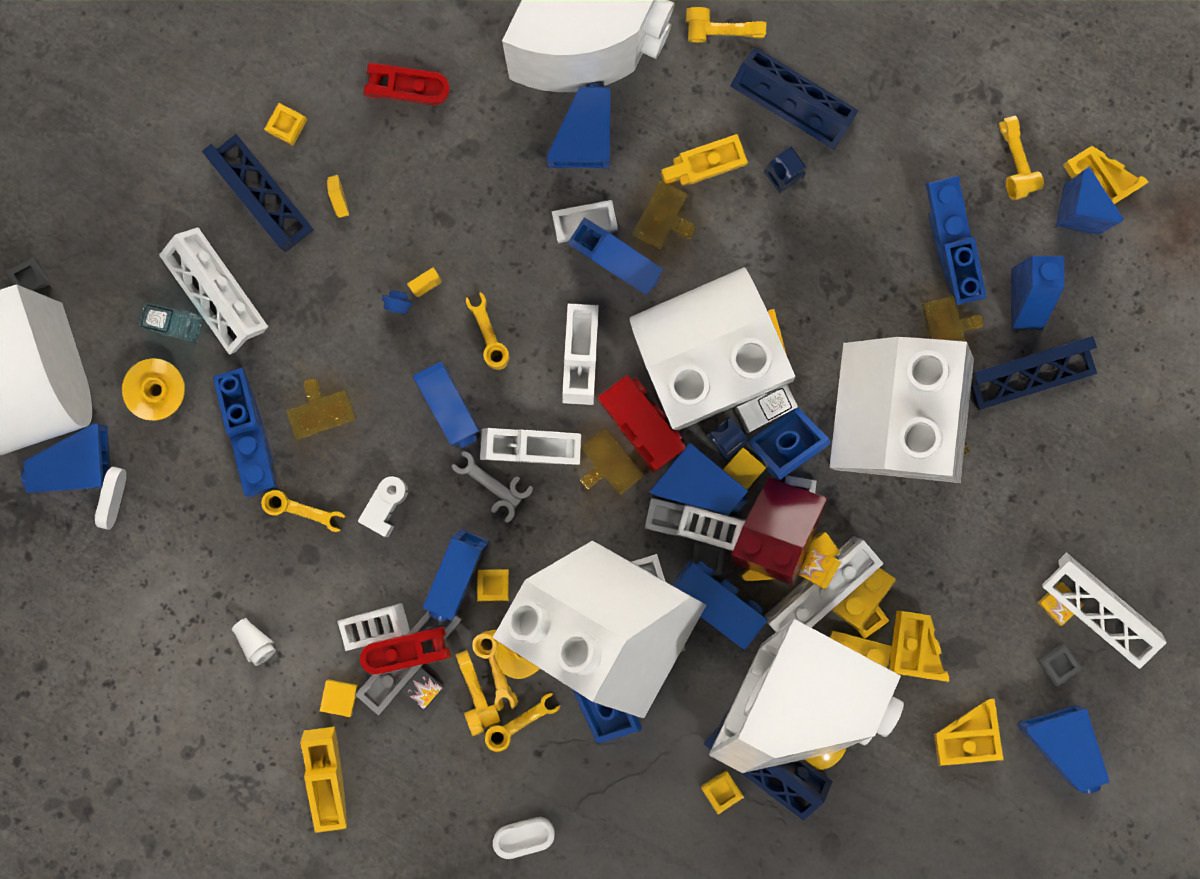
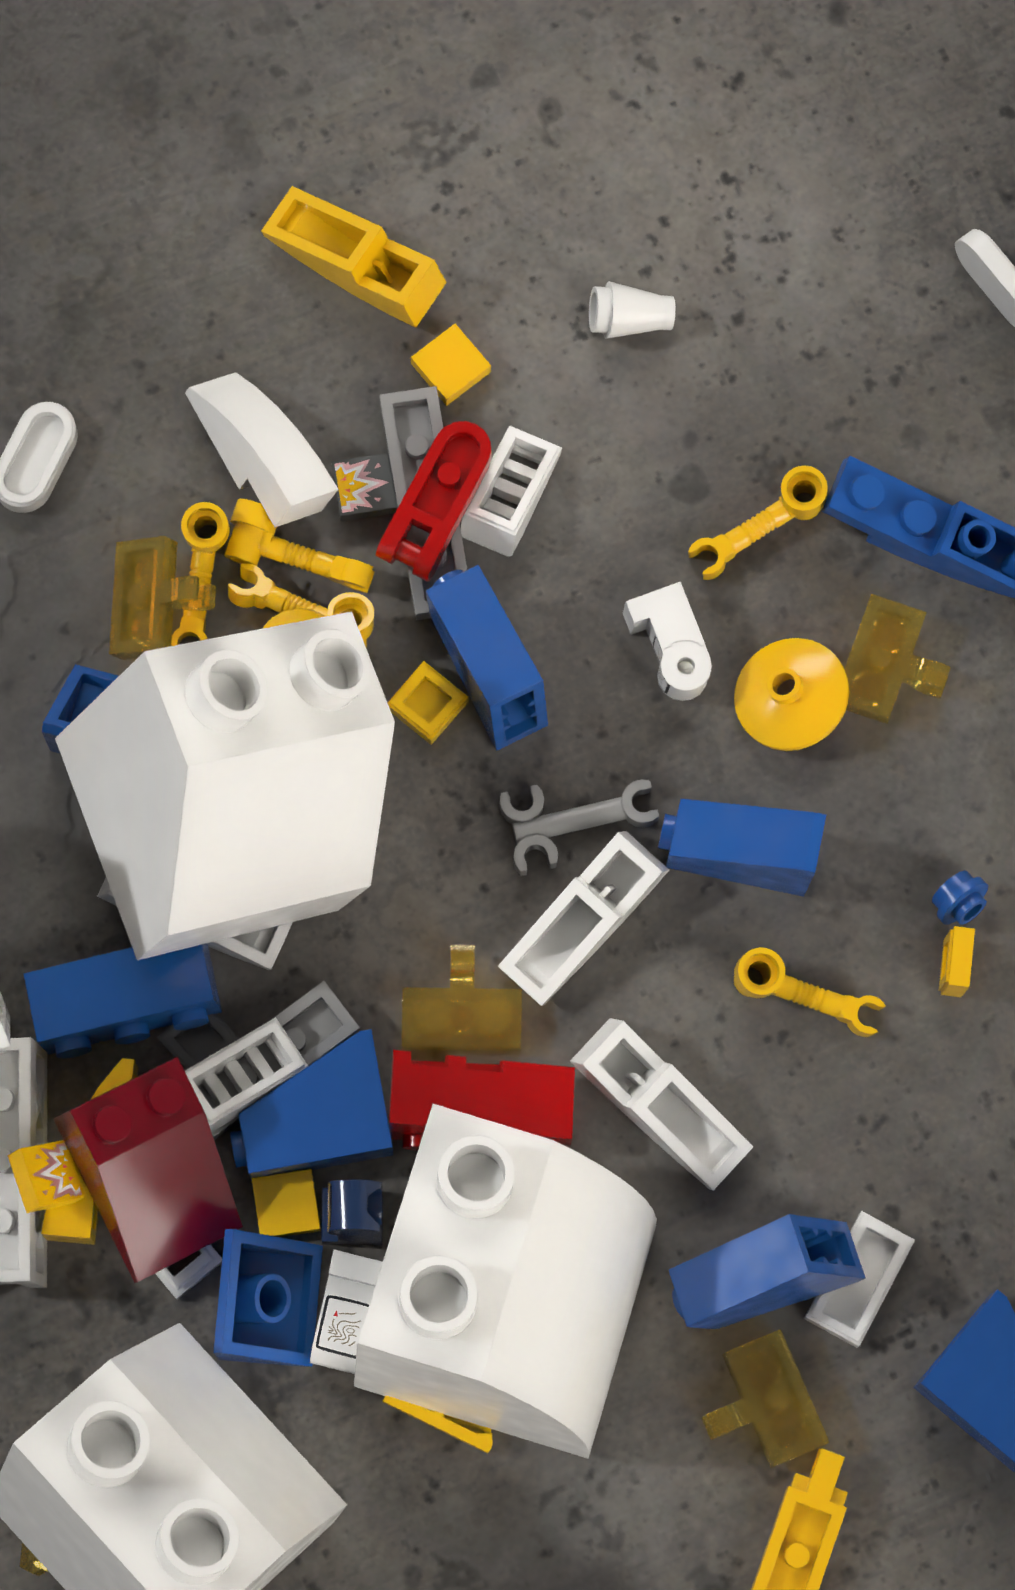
camera: 130 degrees right, 10 degrees down
(365, 424) = (808, 710): none -> yellow dish
(442, 745) = (262, 448): none -> white slope
(545, 737) = (147, 595): none -> clear yellow plate

